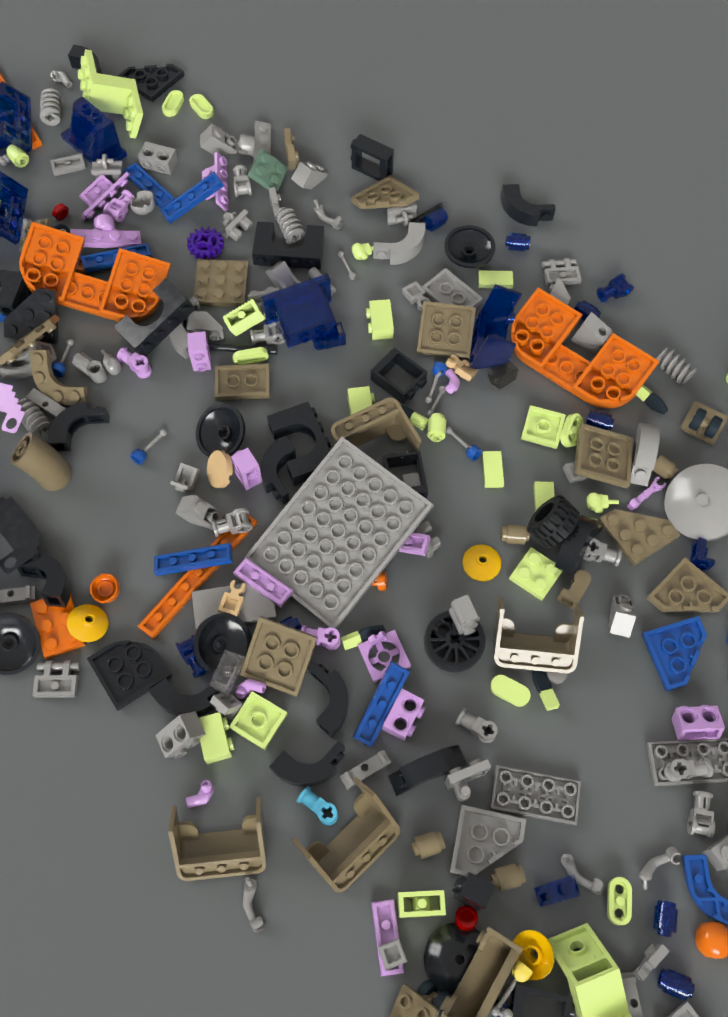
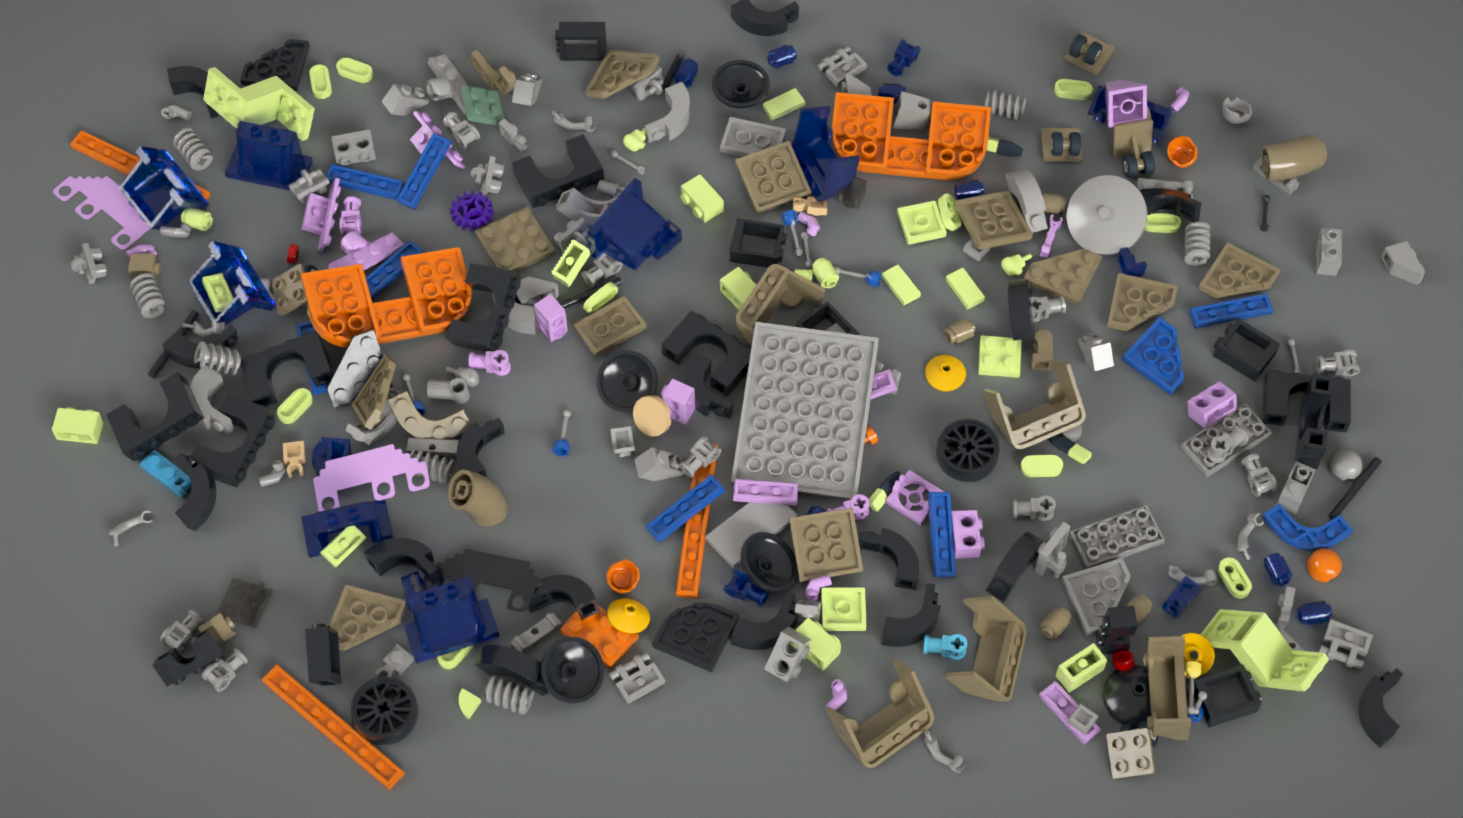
camera: 30 degrees left, 5 degrees down
(68, 164) = (260, 203): light grey tile -> none
(143, 203) = (375, 201): light grey hair -> none
(227, 672) = (792, 581): clear slope -> none
(232, 602) = (750, 521): tan plate -> none
(289, 225) = (545, 150): light grey piece -> none
(374, 765) = (967, 589): light grey piece -> none
(415, 293) = (717, 157): light grey plate -> none
(464, 615) = (967, 418): light grey brick -> none
(553, 521) = (988, 300): black tyre -> none

